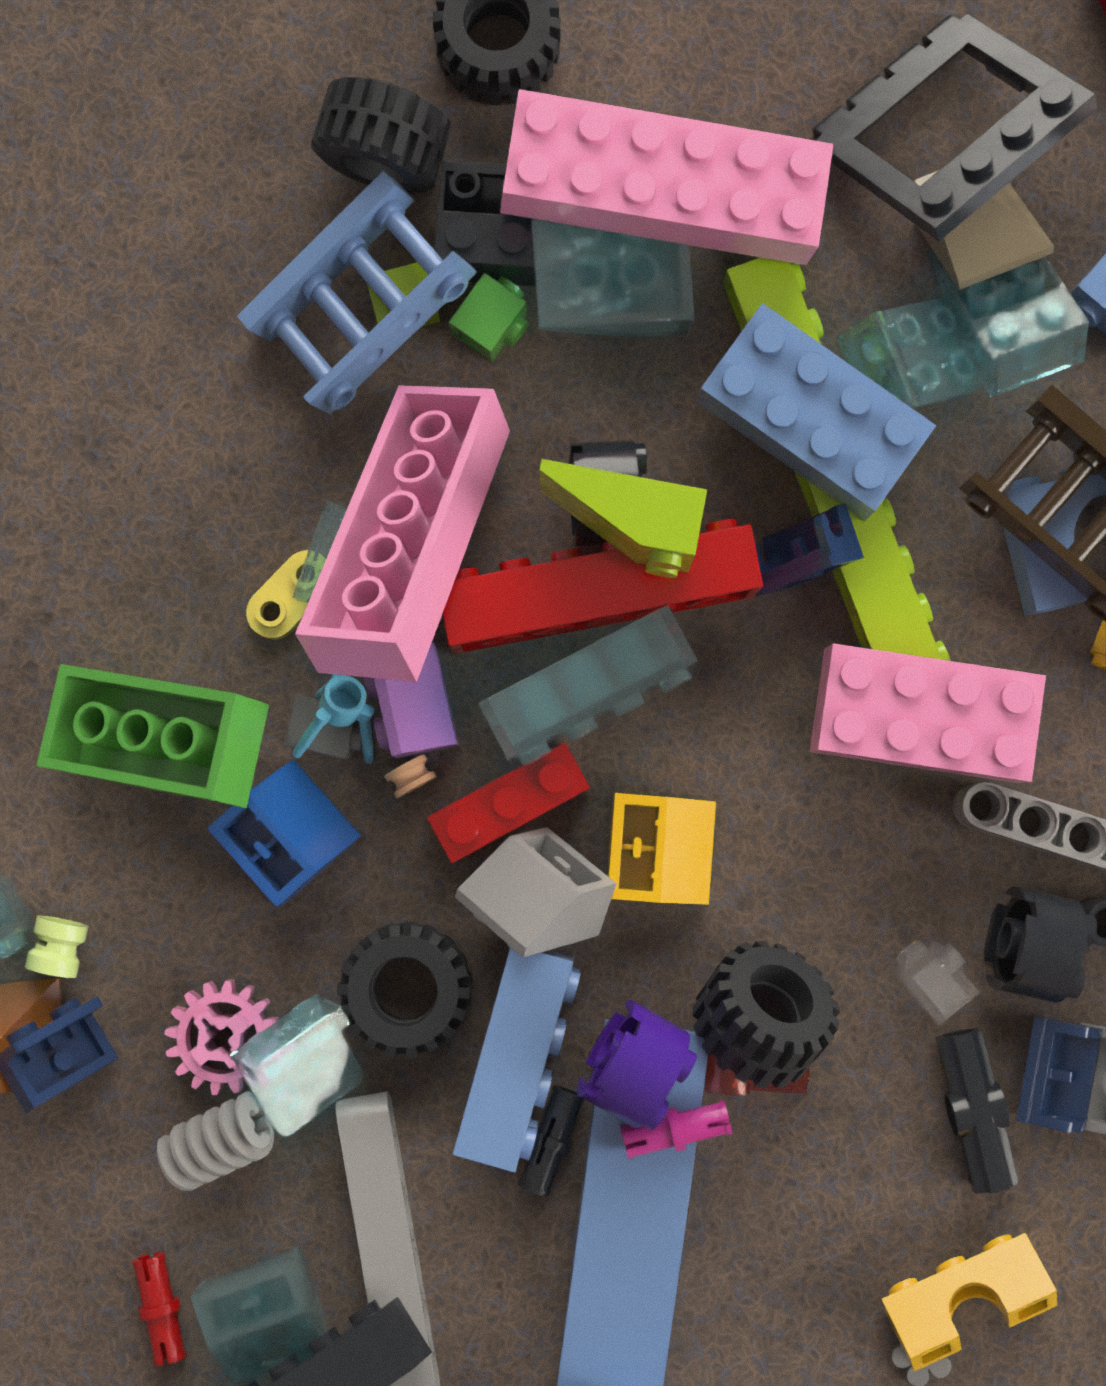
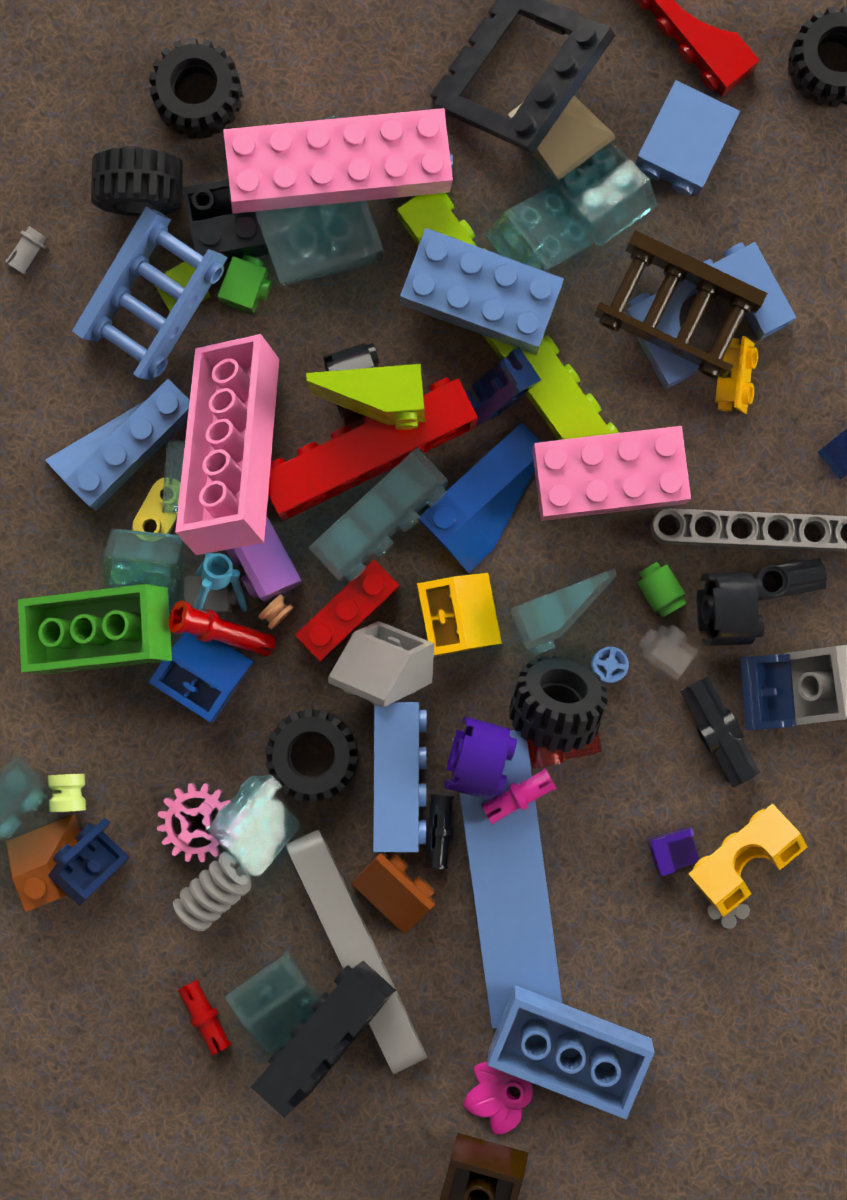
camera: 15 degrees left, 0 degrees up
(207, 190) = (26, 249): none -> light grey pin
(248, 658) = (144, 559): none -> clear light blue slope
(250, 497) = (115, 451): none -> medium blue wedge
(310, 773) = (208, 626): none -> red pin
(469, 1211) = (395, 891): none -> dark orange slope
(737, 700) = (483, 500): none -> blue wedge
(793, 888) = (550, 616): none -> clear light blue slope
(858, 979) = (615, 666): none -> medium blue wheel
(867, 1256) = (673, 851): none -> dark purple panel
(949, 890) = (661, 589): none -> bright green brick

